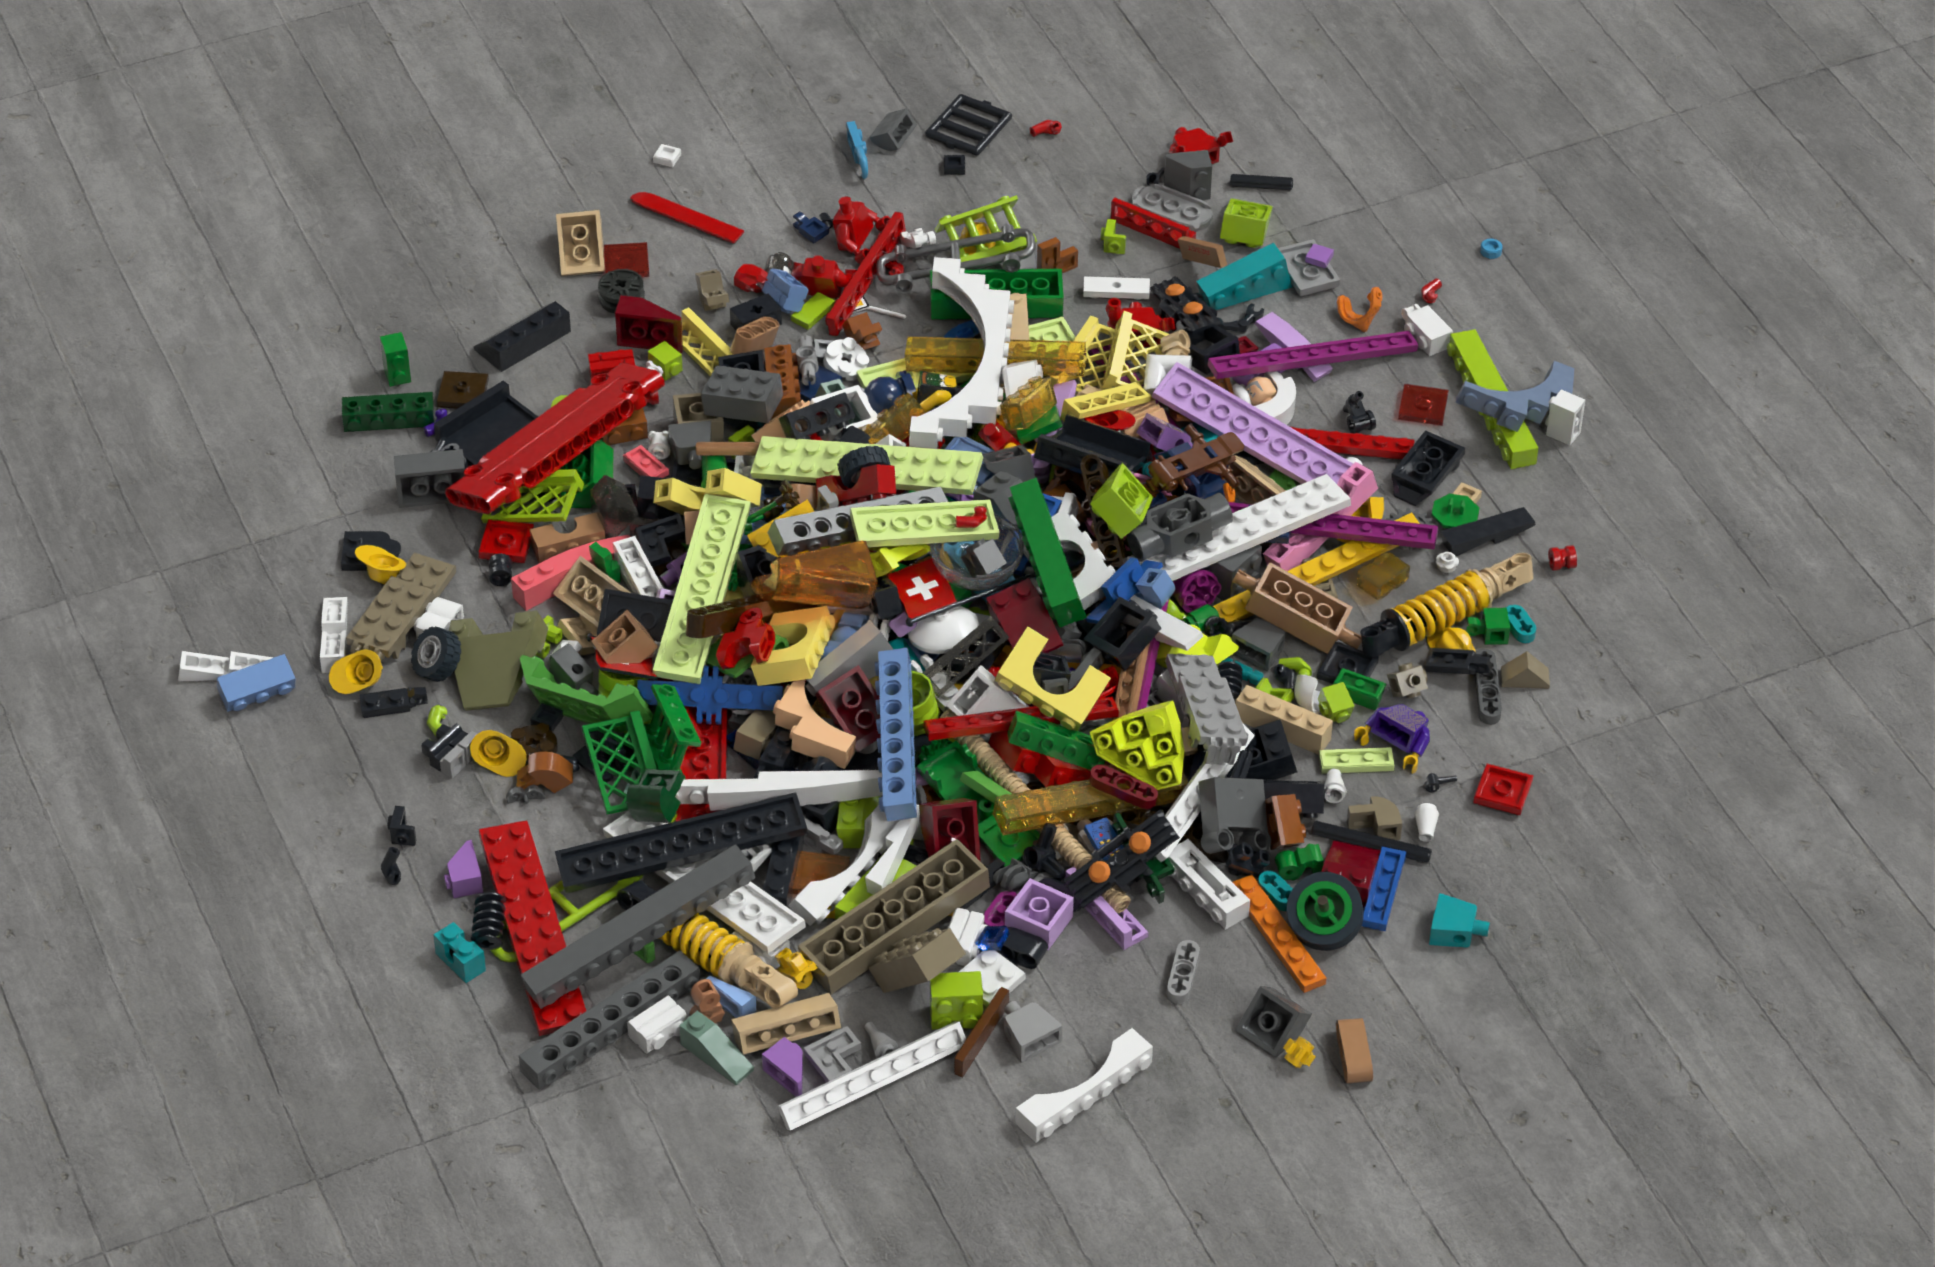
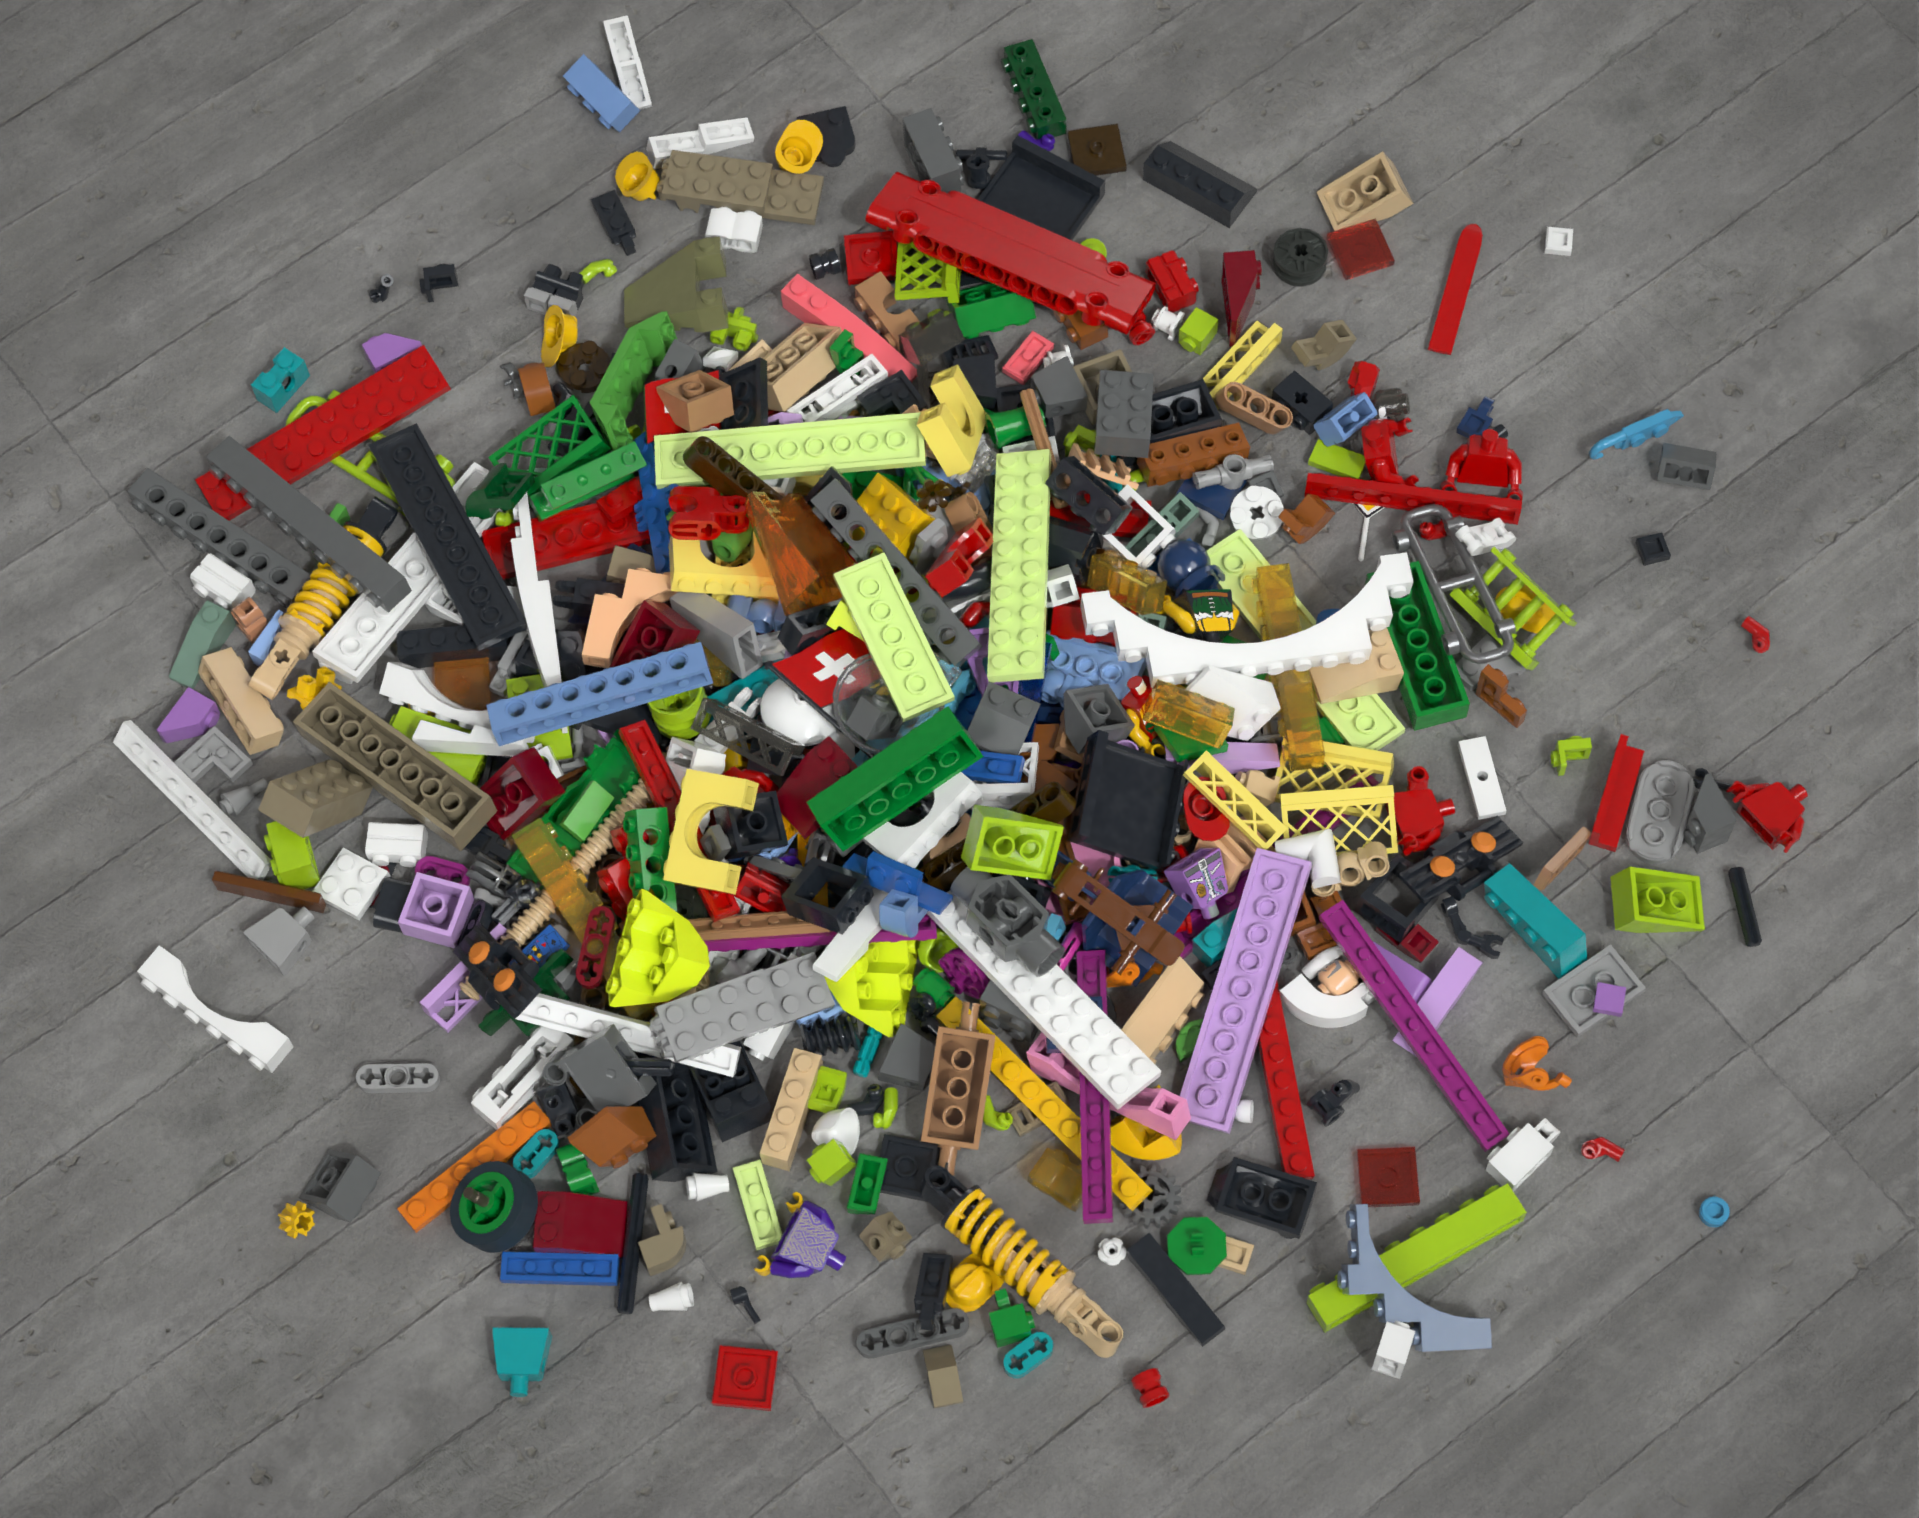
camera: 80 degrees right, 20 degrees up
(395, 359) = (1106, 70): green brick -> none
(436, 654) = (672, 237): black wheel -> none
(488, 920) = (308, 392): black piece -> none
(851, 463) = (980, 555): black wheel -> none
(972, 521) = (905, 686): red arm -> none
(984, 139) = (1740, 578): black bar -> none
(992, 938) = (389, 870): clear blue tile -> none
(1354, 1050) = (313, 1278): medium nougat beam -> none

